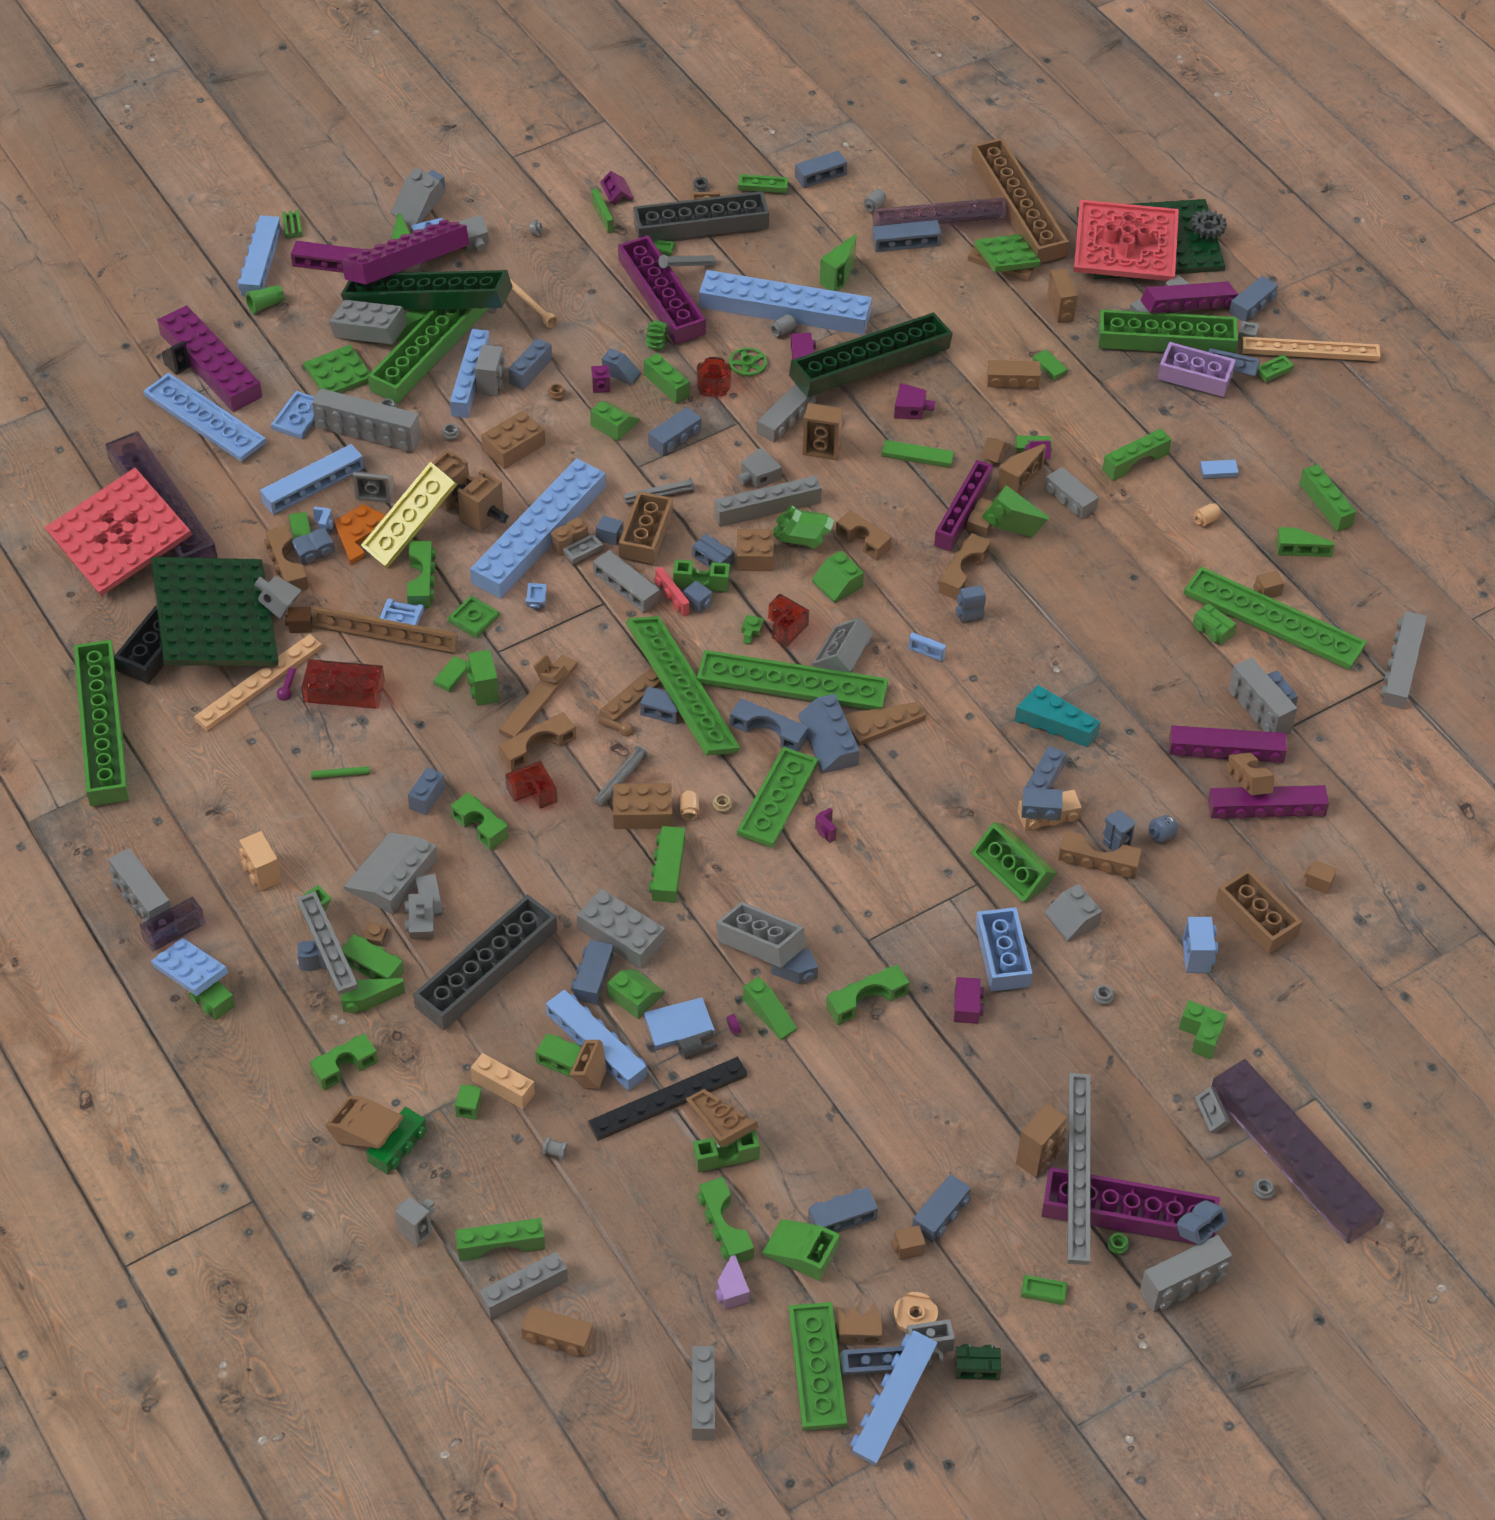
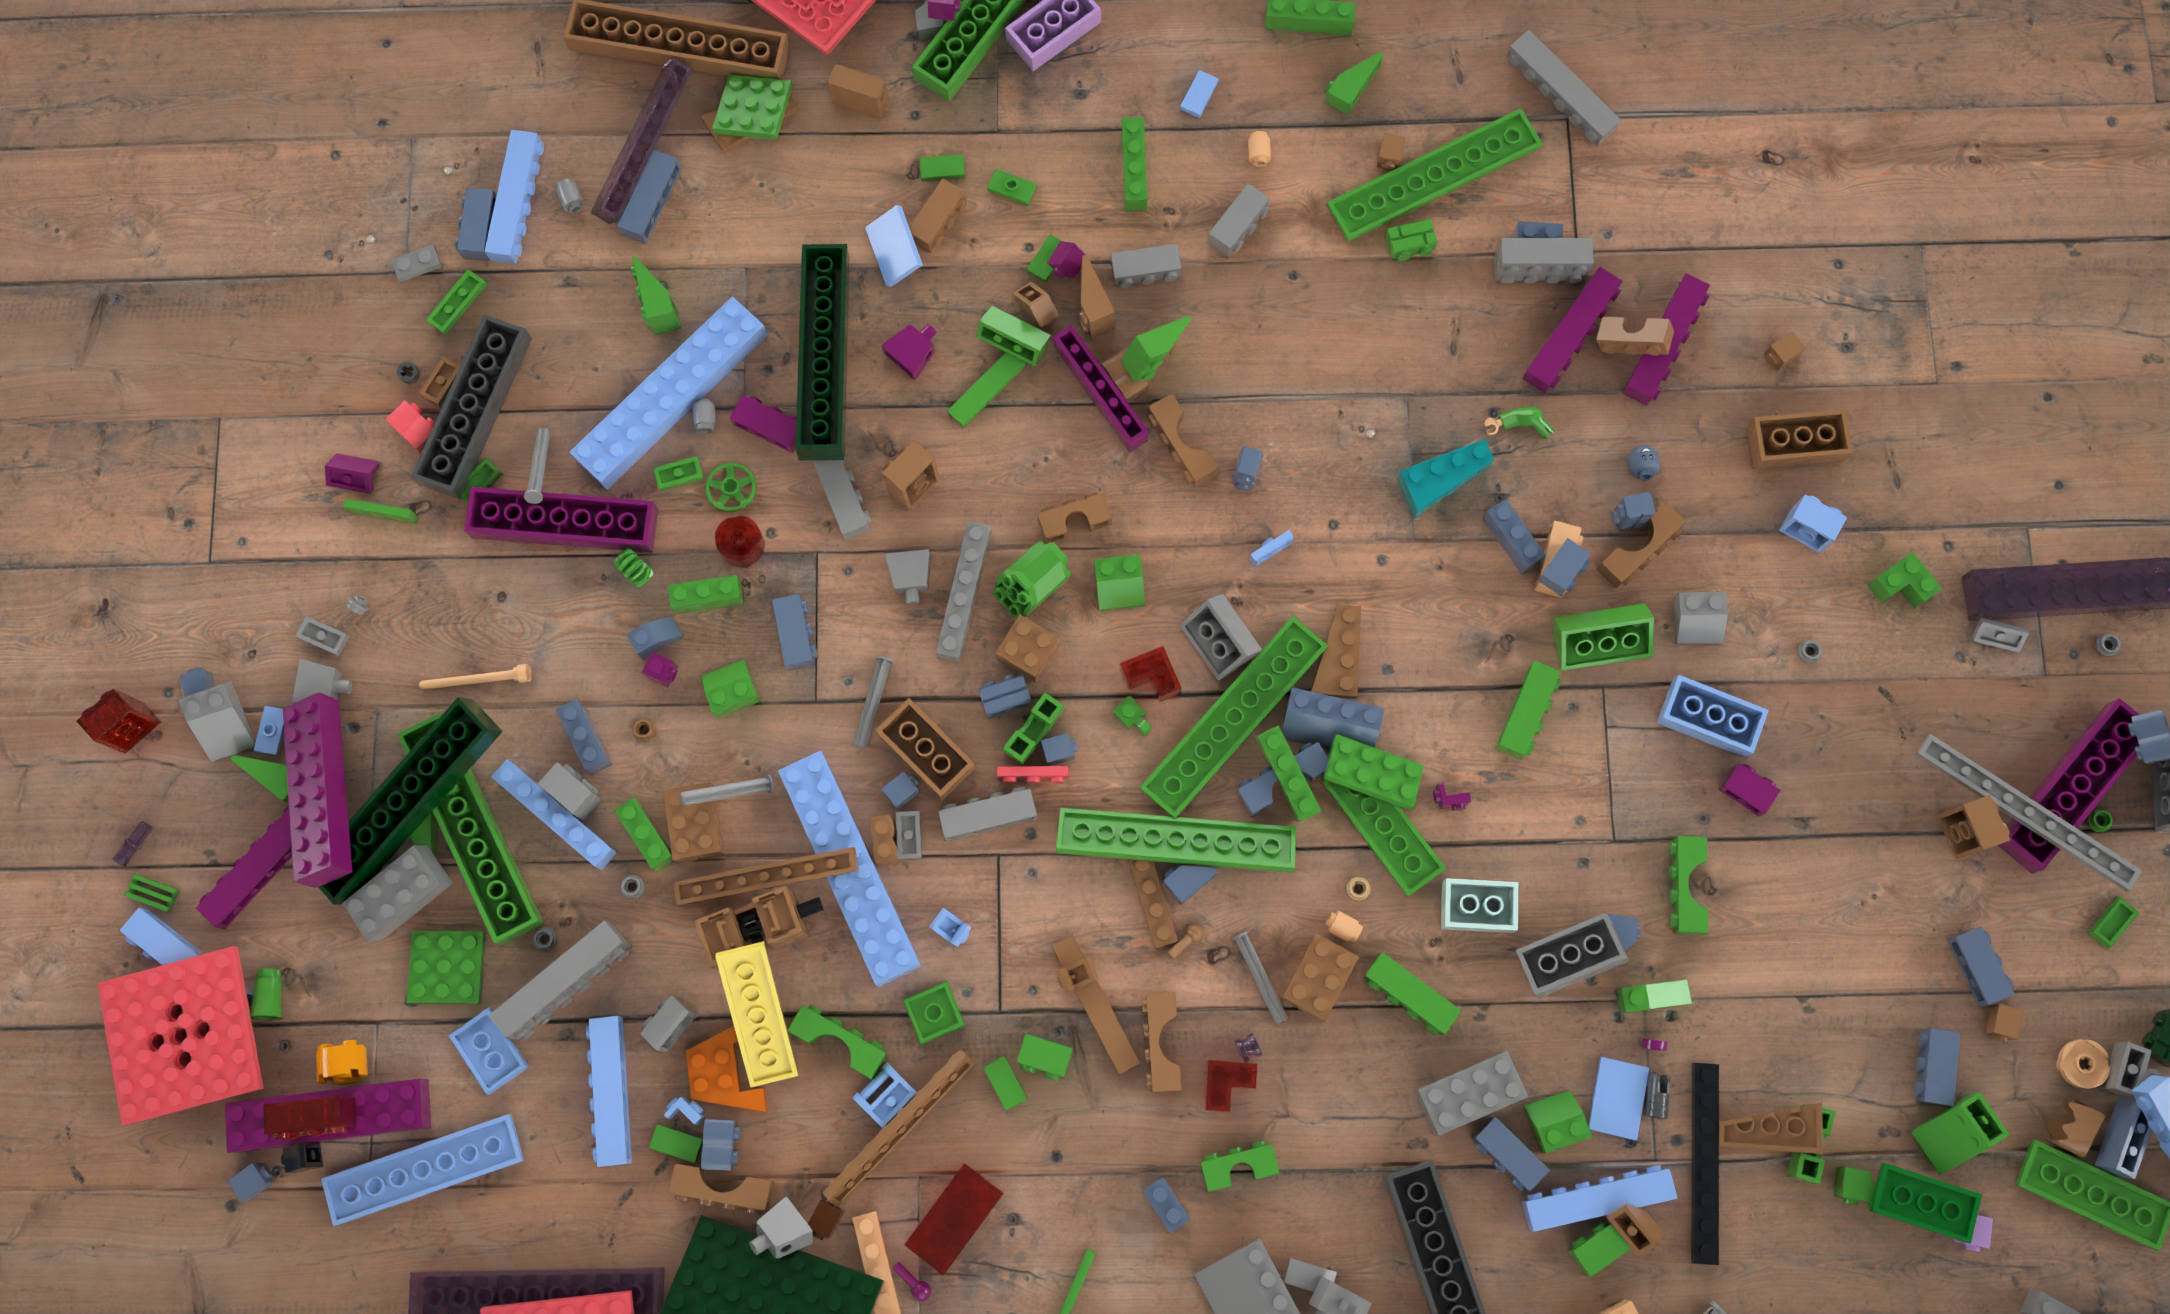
camera: 55 degrees left, 25 degrees up
(146, 343) = (251, 1181): none -> sand blue brick
(203, 334) = (309, 1117): none -> clear red brick
(214, 268) = (146, 1007): none -> coral plate
(246, 345) = (341, 1063): none -> light orange brick
(316, 201) = (132, 843): none -> clear purple axle
(385, 154) = (118, 721): none -> clear red brick
(494, 411) = (644, 834): none -> bright green arch
(504, 222) = (322, 636): none -> light grey plate
(511, 488) = (766, 876): none -> medium nougat plate
(545, 440) = (727, 791): none -> light grey axle
(566, 789) = (1248, 1048): none -> wheel
(669, 193) = (411, 424): none -> coral brick
(730, 1234) = (1925, 1203): none -> green plate
(736, 331) = (678, 473): none -> bright green plate
(759, 871) = (1479, 905): none -> light aqua brick
(762, 733) = (1294, 785): none -> bright green arch
(773, 156) = (416, 263): none -> light grey plate
(810, 769) = (1373, 772): none -> bright green plate
(852, 176) = (514, 197): none -> light blue brick
(924, 841) = (1528, 710): none -> bright green brick
(962, 445) = (1013, 335): none -> bright green brick
(973, 361) = (893, 246): none -> light blue tile
(1067, 404) = (1012, 187): none -> bright green plate
(1137, 742) = (1521, 416): none -> bright green arm
(1146, 526) = (1239, 220): none -> light grey brick

